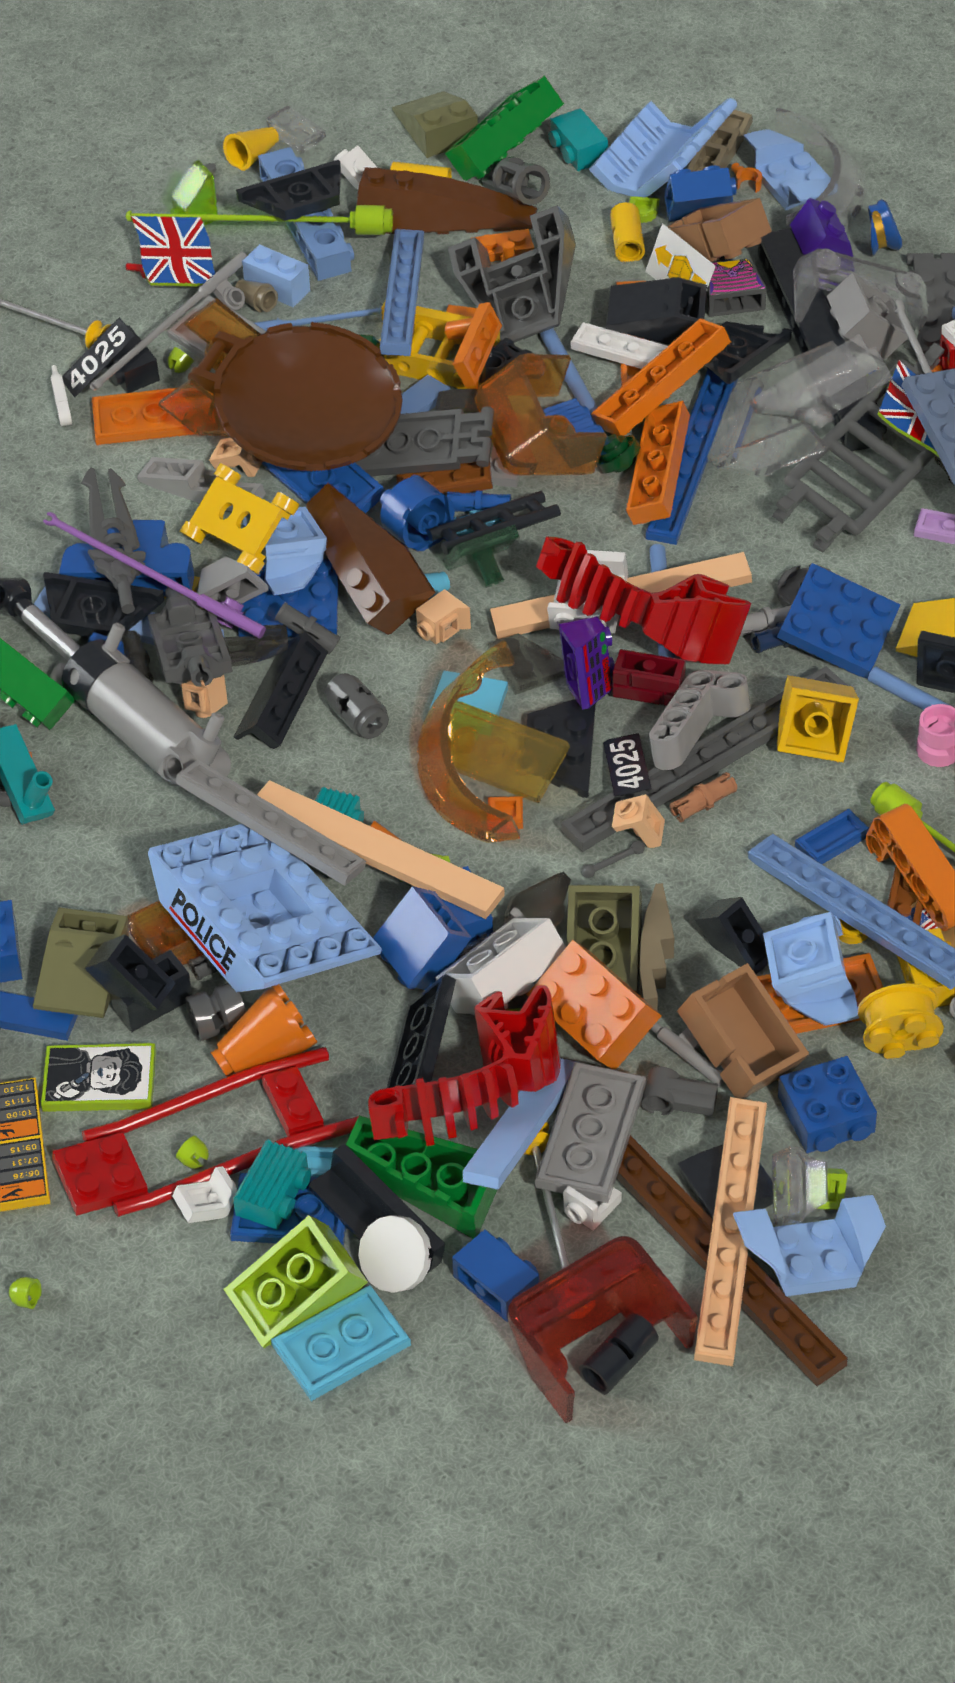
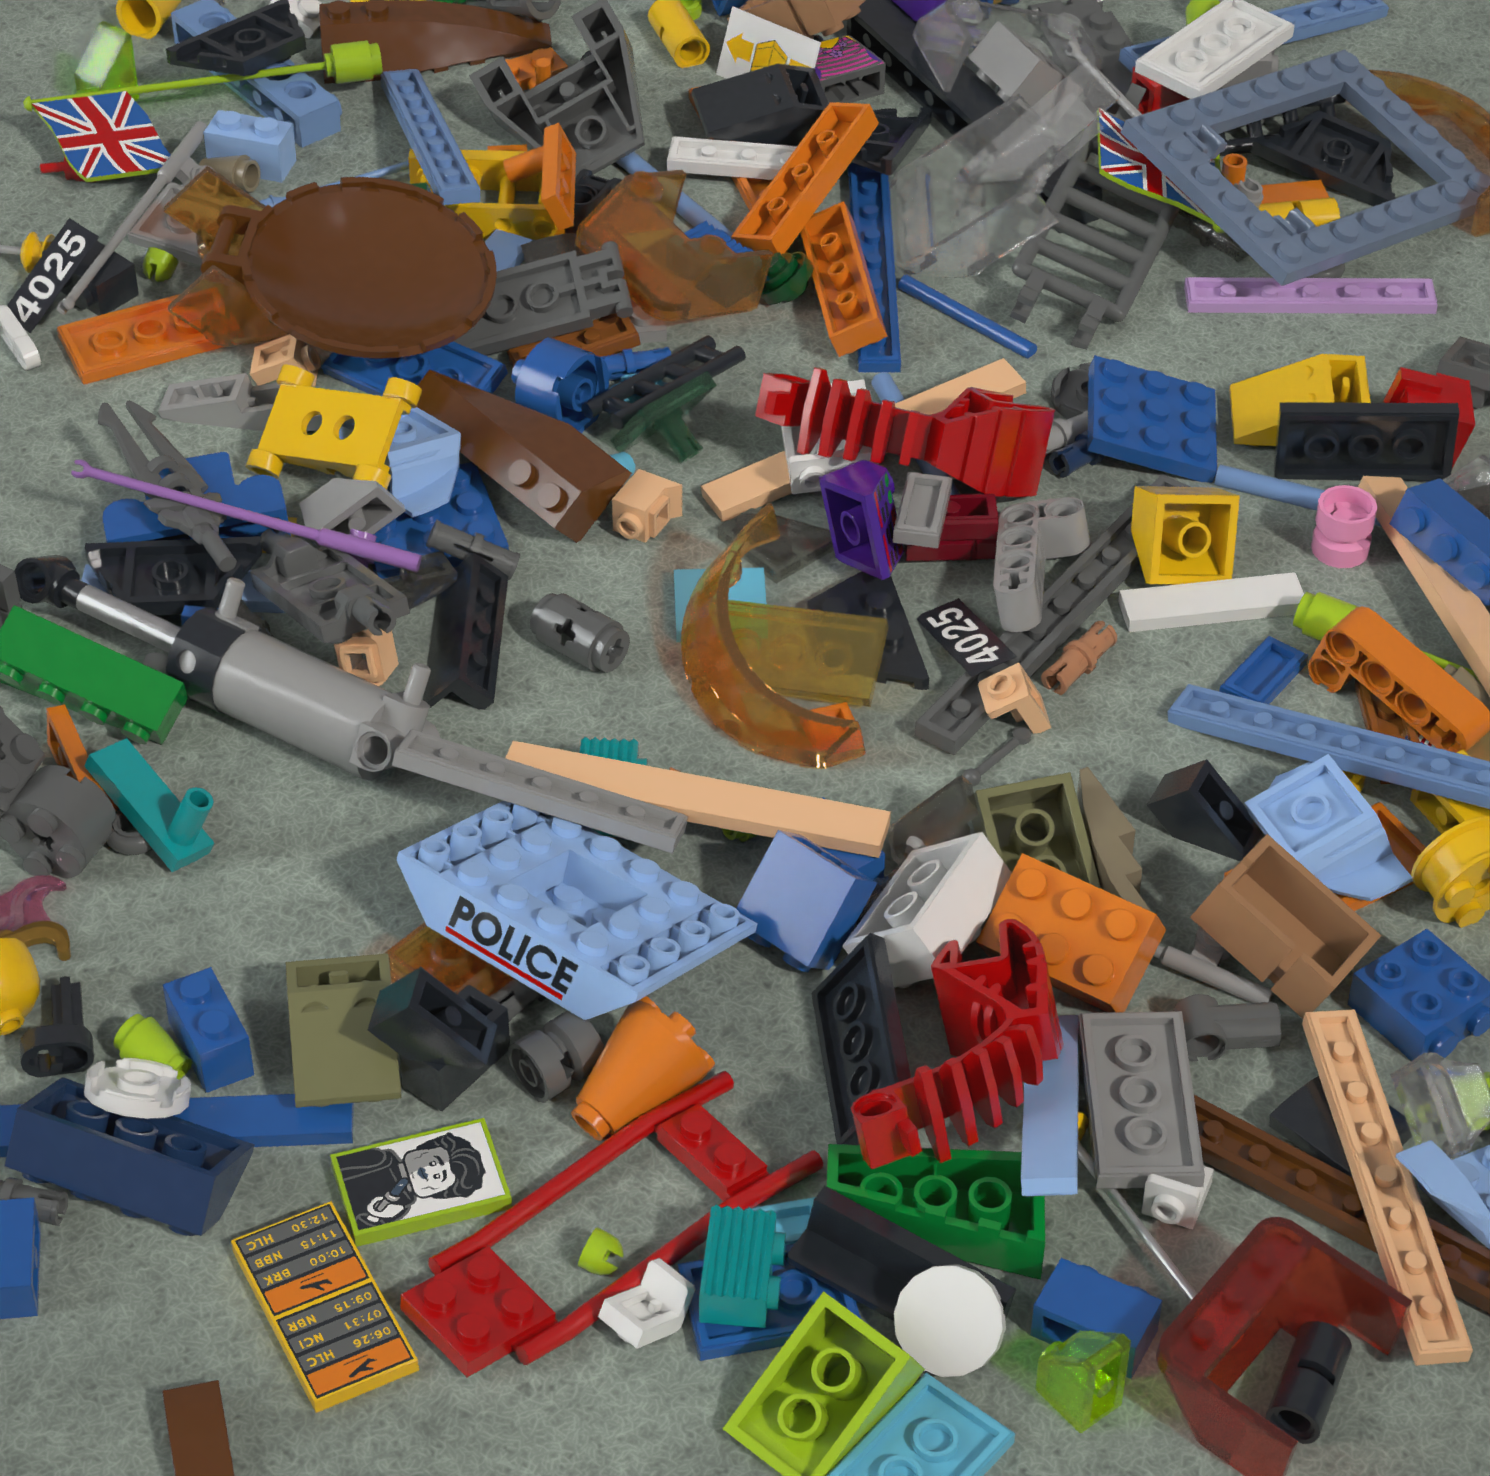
camera: 20 degrees left, 5 degrees down
(467, 1314) = (1084, 1376): none -> clear neon green slope
(625, 663) = (922, 510): none -> light grey tile
(744, 509) = (967, 316): none -> blue bar
(819, 773) = (1210, 602): none -> white tile

